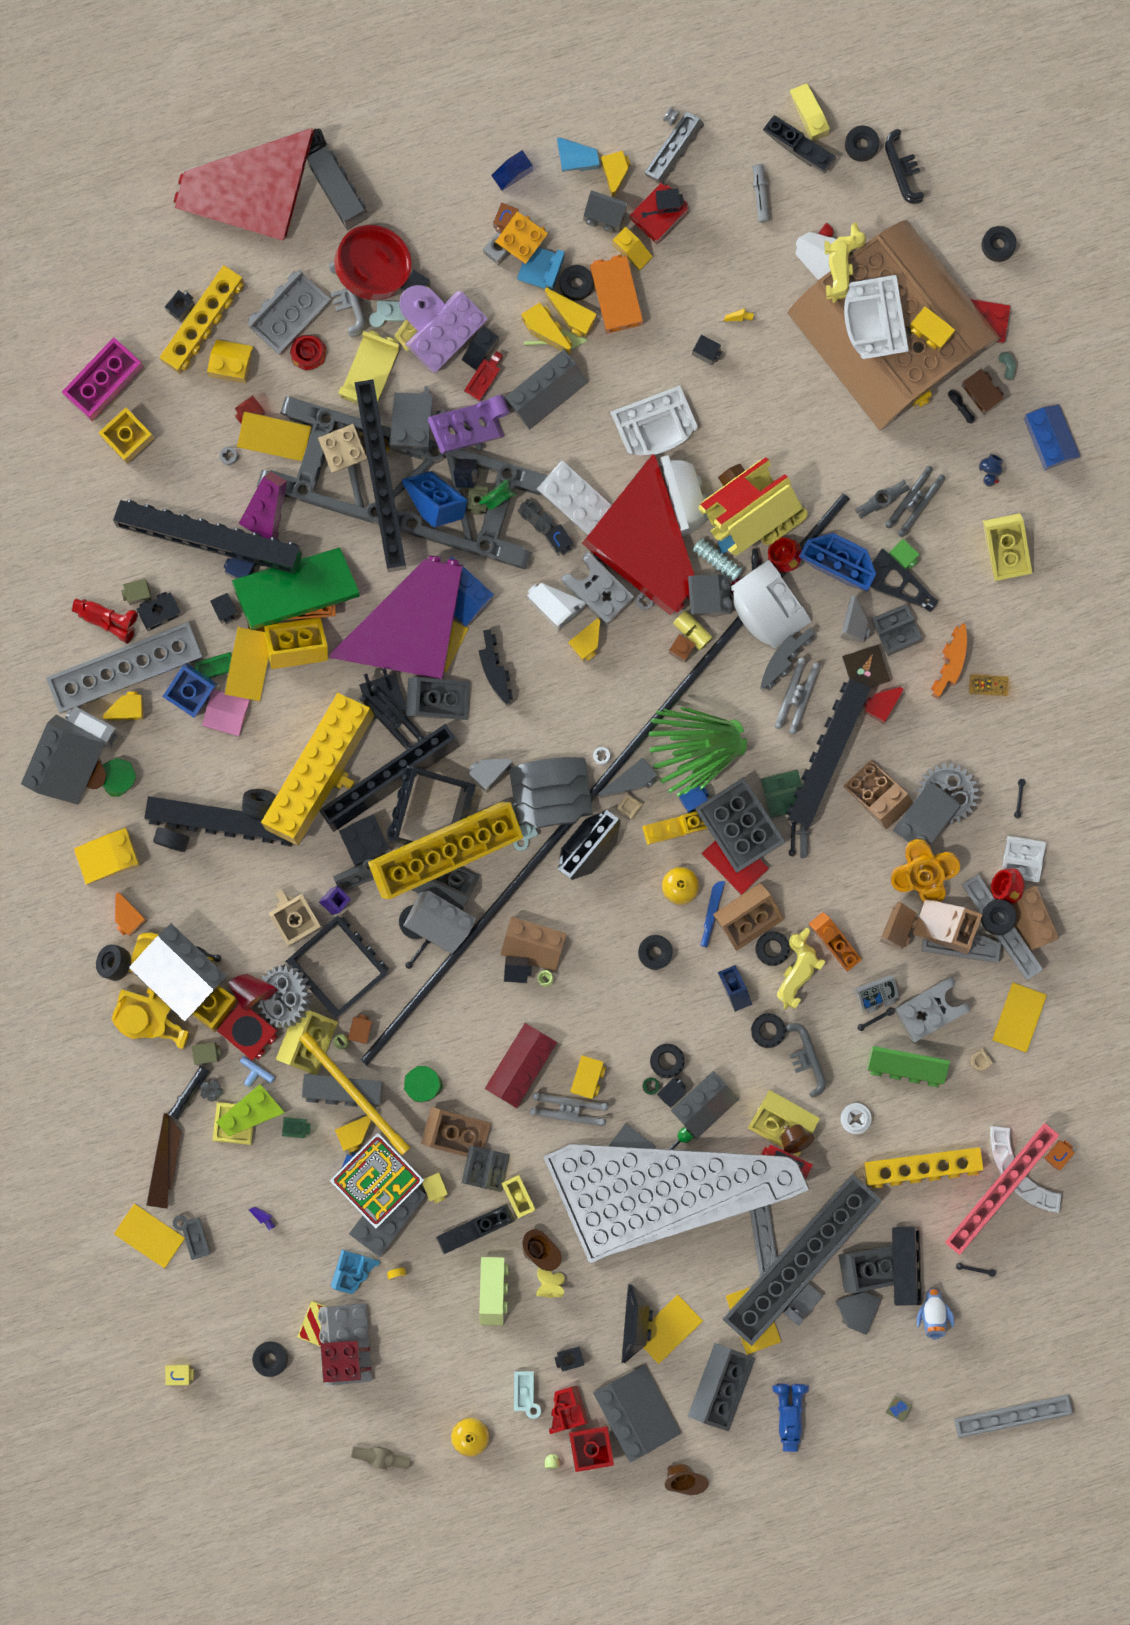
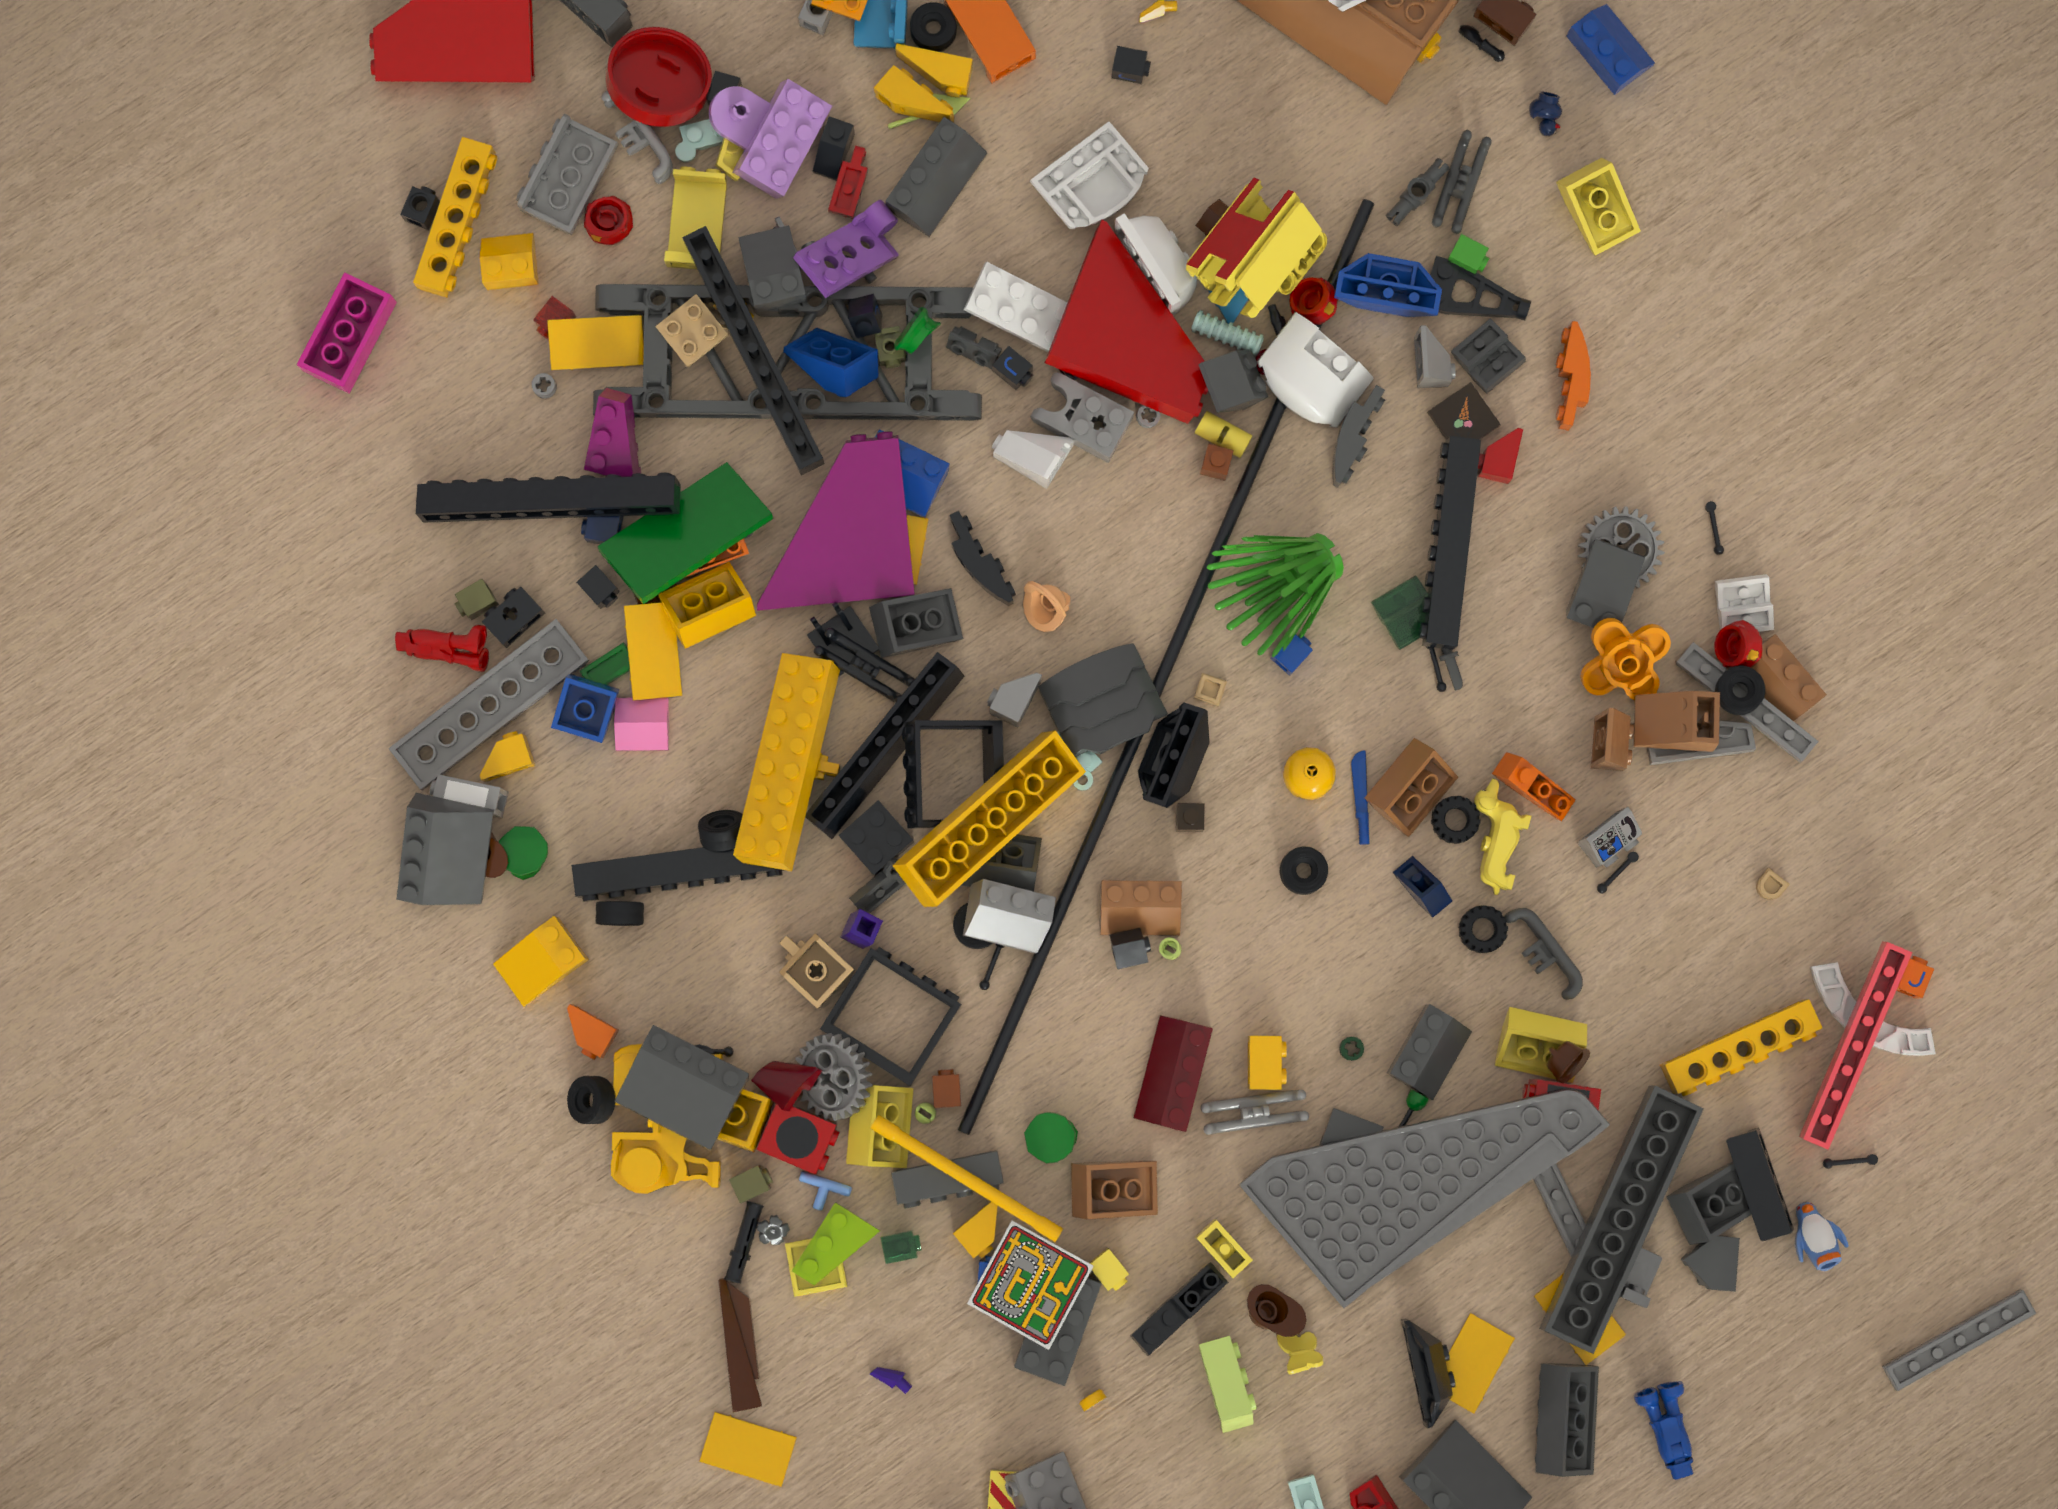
camera: 25 degrees left, 0 degrees up
(126, 435) = (400, 397): yellow brick -> none
(194, 1236) = (808, 1433): dark grey hinge -> none
(351, 1271) = (1032, 1414): dark azure slope -> none
(485, 1168) = (1167, 1224): dark grey slope -> none
(531, 713) = (1045, 606): none -> light nougat helmet
(576, 1352) = (1368, 1443): black brick -> none
(586, 642) = (1089, 490): yellow slope -> none
(587, 891) = (1190, 817): none -> dark brown brick
(607, 754) = (1161, 630): white bush -> none
(633, 779) = (1206, 651): dark grey slope -> none
(667, 1048) = (1377, 999): black tyre -> none
(672, 1092) = (1382, 1048): black brick -> none
(673, 828) = (1287, 694): yellow slope -> none
(740, 825) = (1365, 670): dark grey slope -> none
(740, 881) = (1370, 719): red tile -> none
(797, 695) = (1385, 479): light grey piece -> none
(855, 1109) = (1645, 1008): white gear -> none
(879, 794) = (1532, 576): medium nougat slope -> none
(898, 1408) = (1807, 1376): olive tile -> none
(907, 1065) = (1681, 920): bright green slope -> none
(935, 1008) = (1692, 834): light grey brick -> none
(988, 685) = (1629, 393): clear yellow tile -> none
(1019, 1017) = (1803, 813): yellow window -> none

